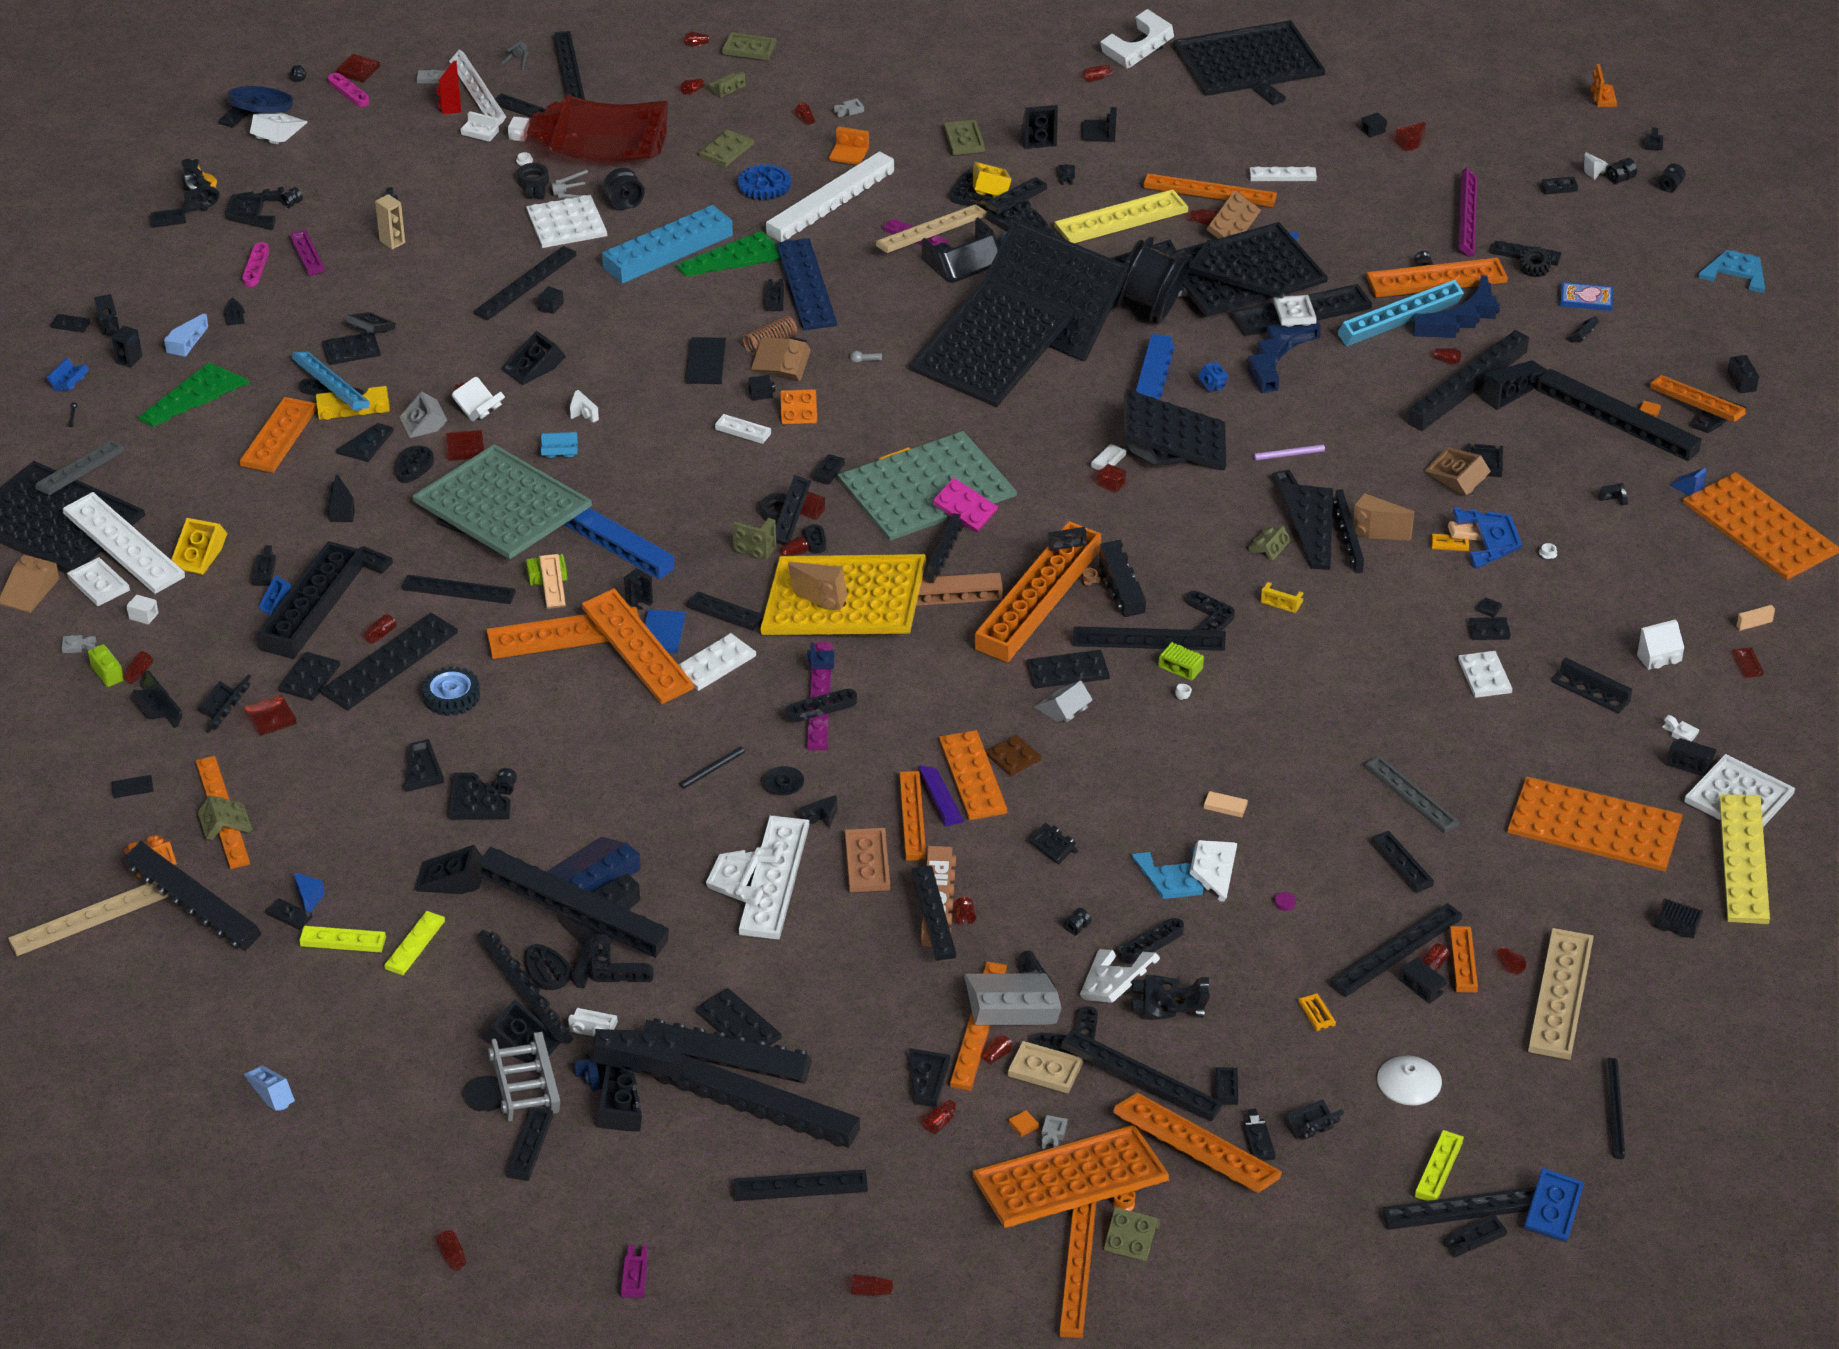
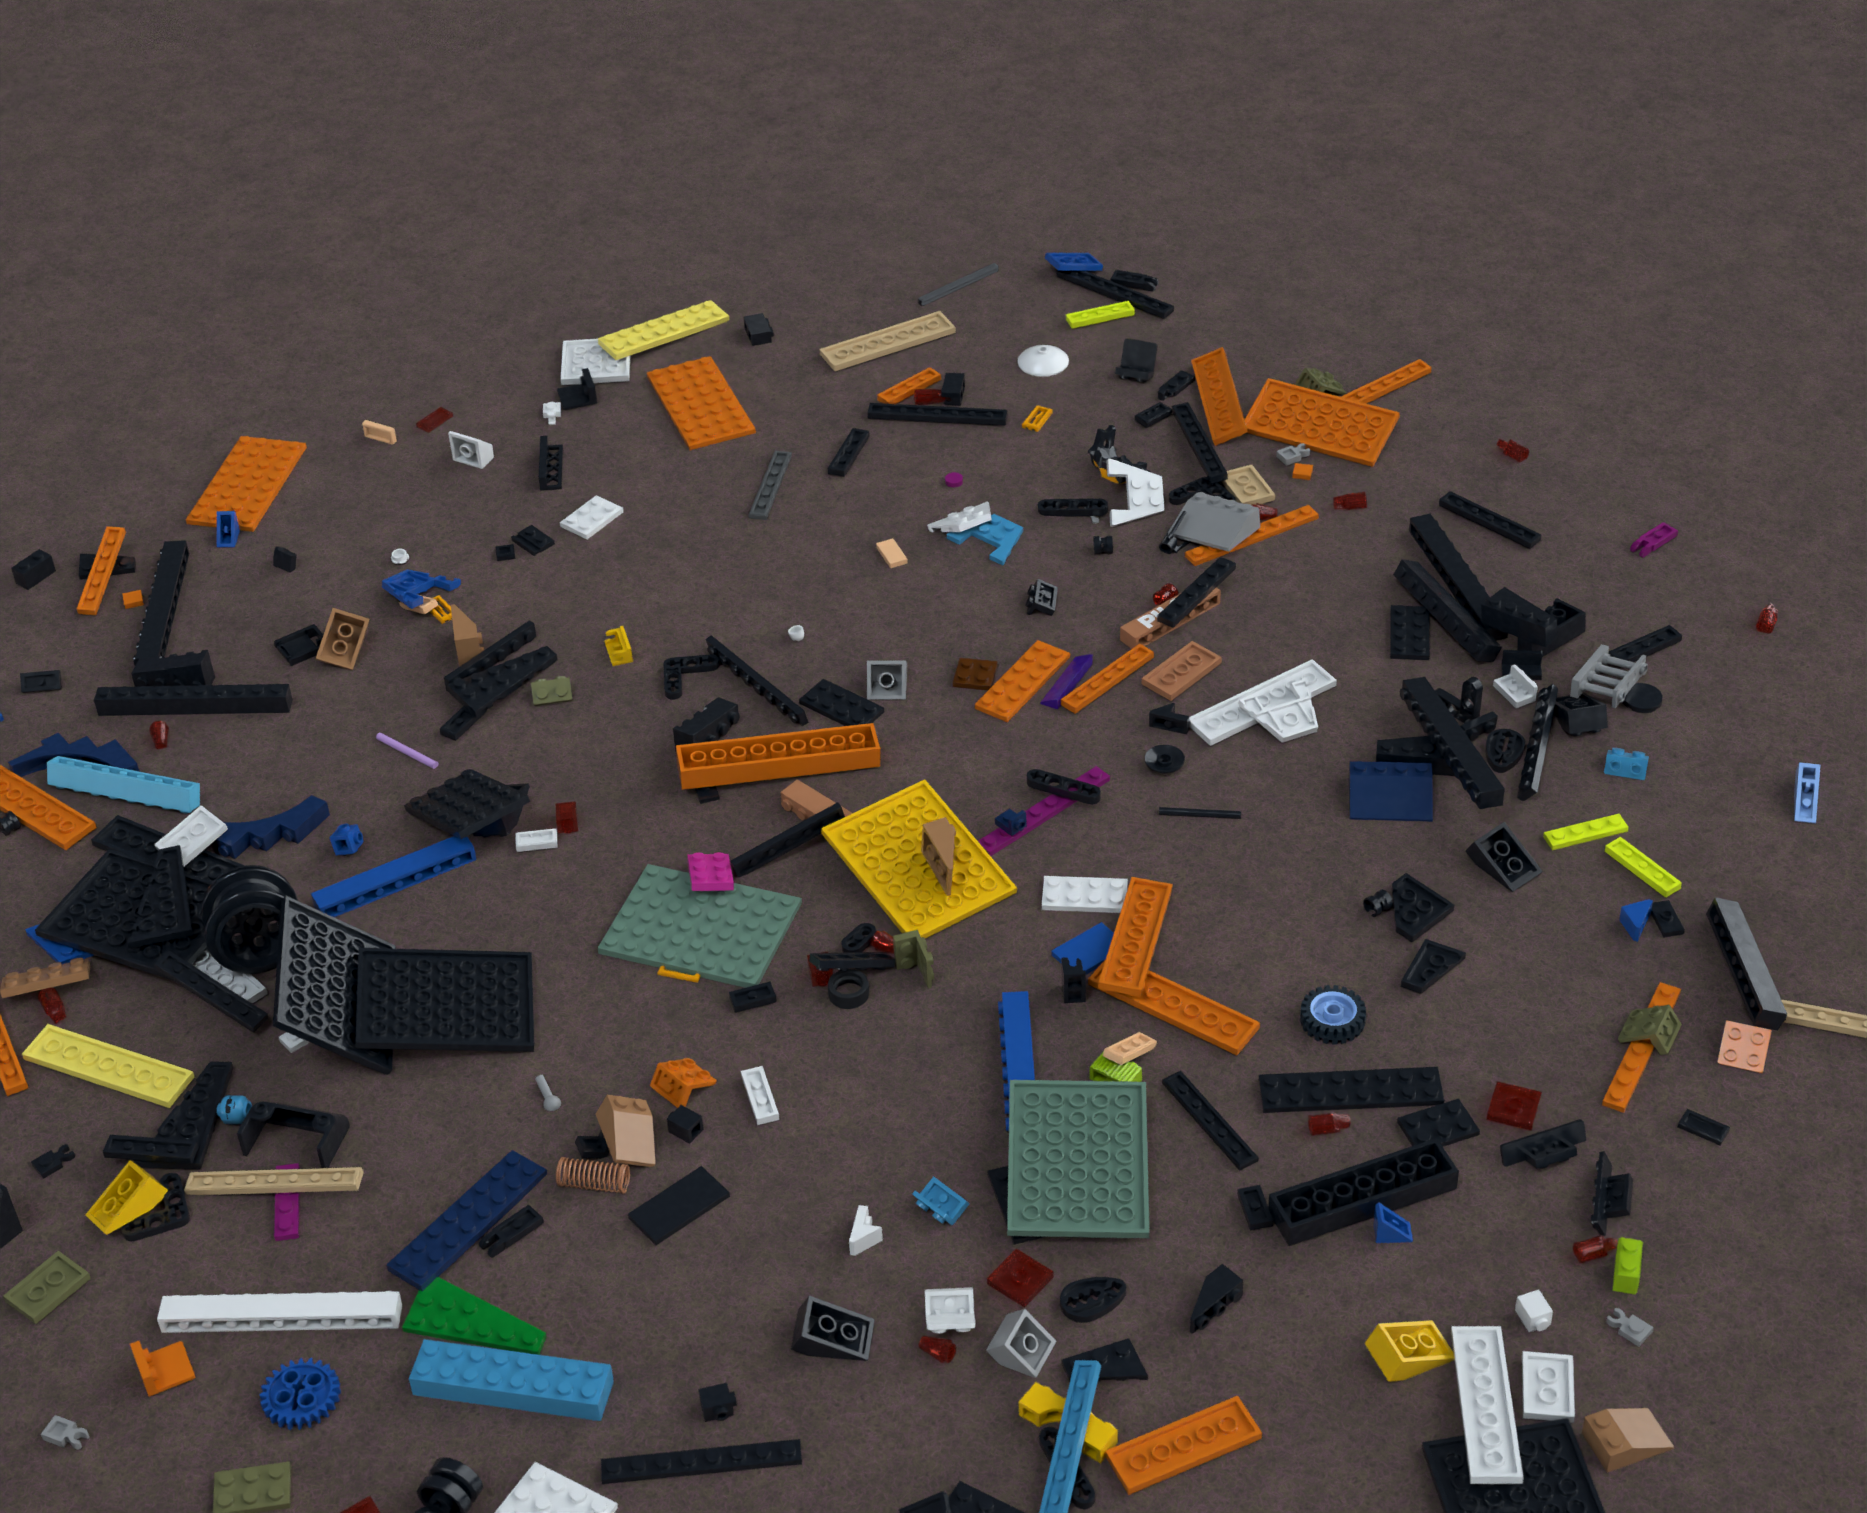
camera: 130 degrees left, 0 degrees up
(264, 567) = (1364, 1277): black hinge -> none
(439, 1020) = (1626, 764): none -> dark azure bracket
(588, 1069) = (1554, 659): dark blue bracket -> none
(725, 610) = (1019, 928): black plate -> none
(805, 113) = (112, 1465): clear red cone -> none
(928, 1075) = (1327, 526): black wing -> none
(1067, 538) = (713, 748): black plate -> none
(1181, 661) = (763, 651): lime brick -> none
(1512, 960) = (884, 369): clear red cone -> none

